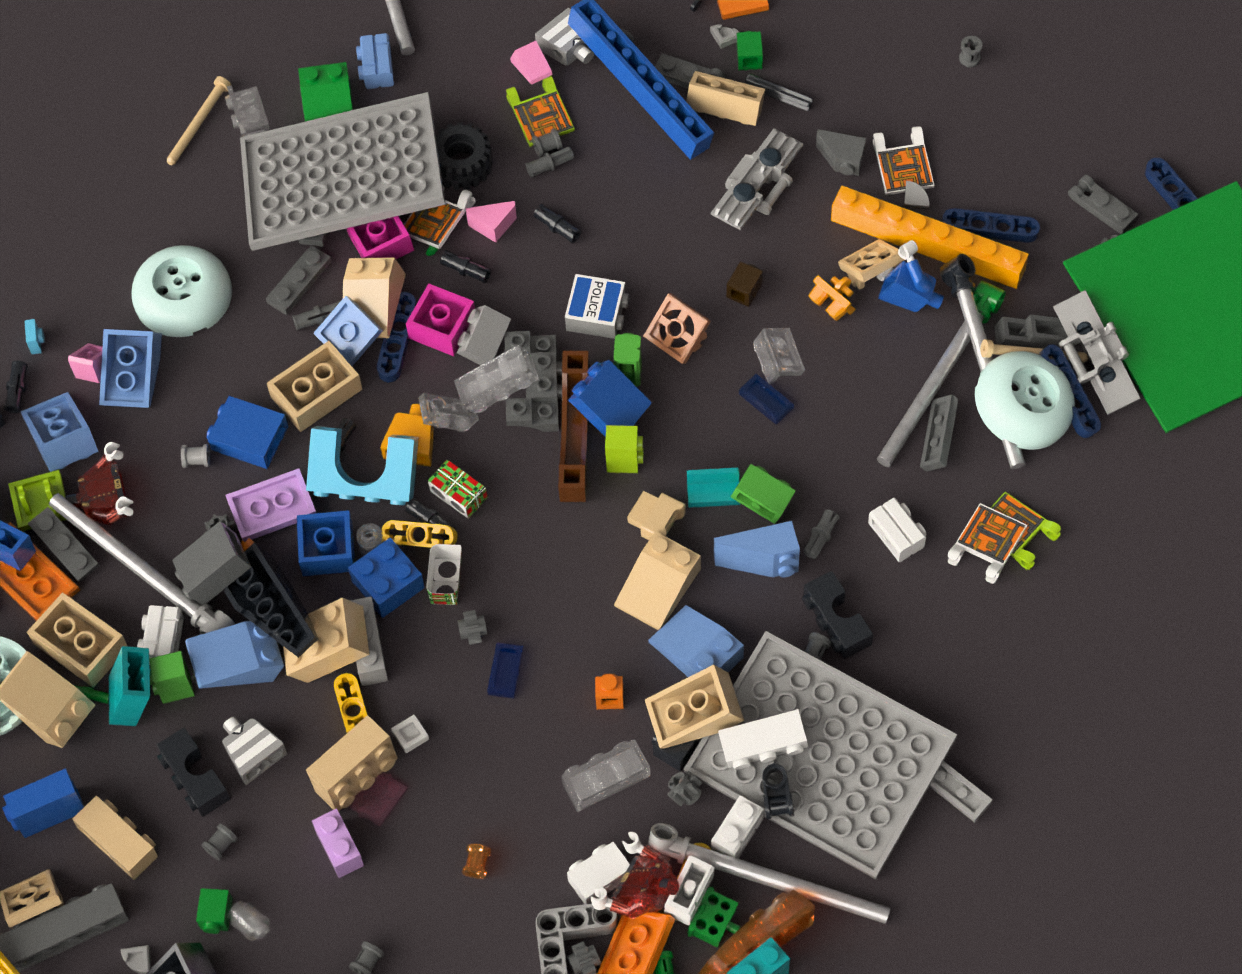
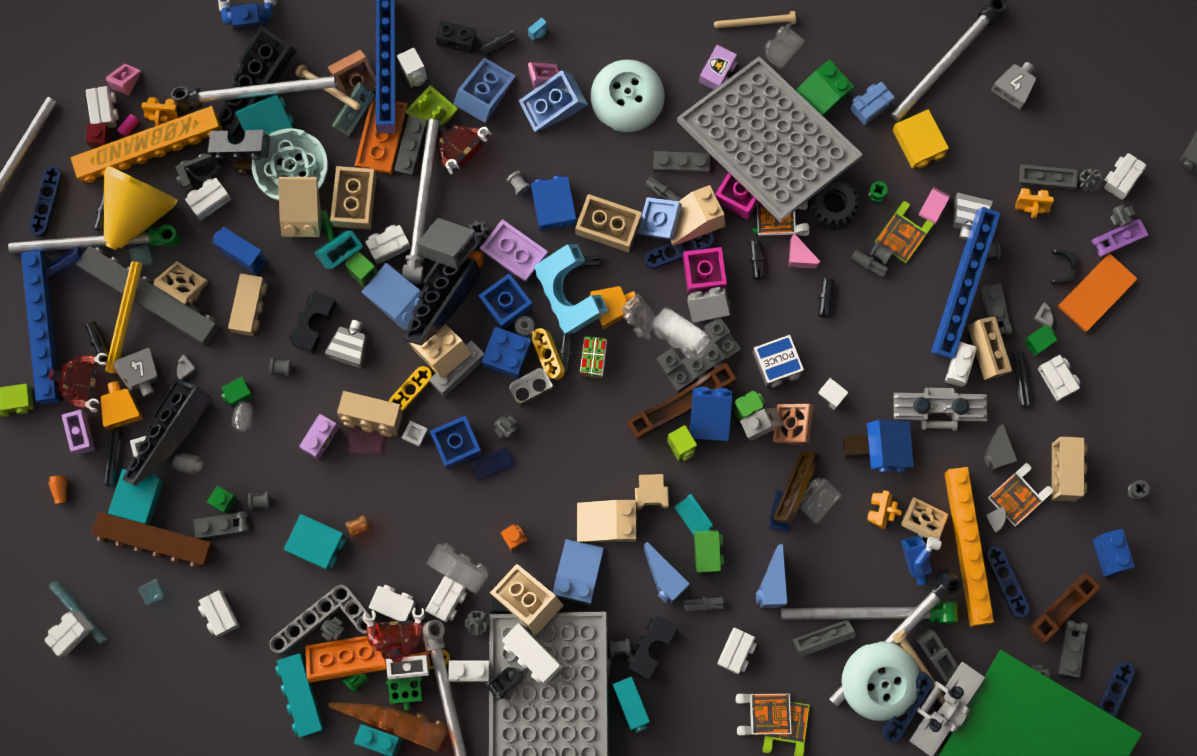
camera: 55 degrees right, 15 degrees up
(222, 183) = (718, 67): none -> lavender brick
(450, 39) = (920, 139): none -> yellow brick
(453, 690) = (455, 442): none -> blue brick
(464, 921) = (315, 542): none -> teal brick
(477, 109) = (878, 186): none -> green bush
(632, 807) = (446, 599): none -> white brick
(655, 360) = (760, 423): none -> light grey torso
(671, 270) = (833, 393): none -> white panel
(727, 137) = (961, 365): none -> white brick
(751, 364) = (796, 487): none -> dark brown plate
(767, 247) = (890, 446): none -> blue brick
(801, 56) = (1059, 378): none -> white brick
(845, 443) = (773, 586): none -> medium blue slope
(892, 668) = (631, 704): none -> teal brick
(906, 96) = (1068, 469): none -> tan brick
(1024, 104) = (1113, 552): none -> blue brick
(1047, 167) = (1063, 607): none -> reddish brown arch

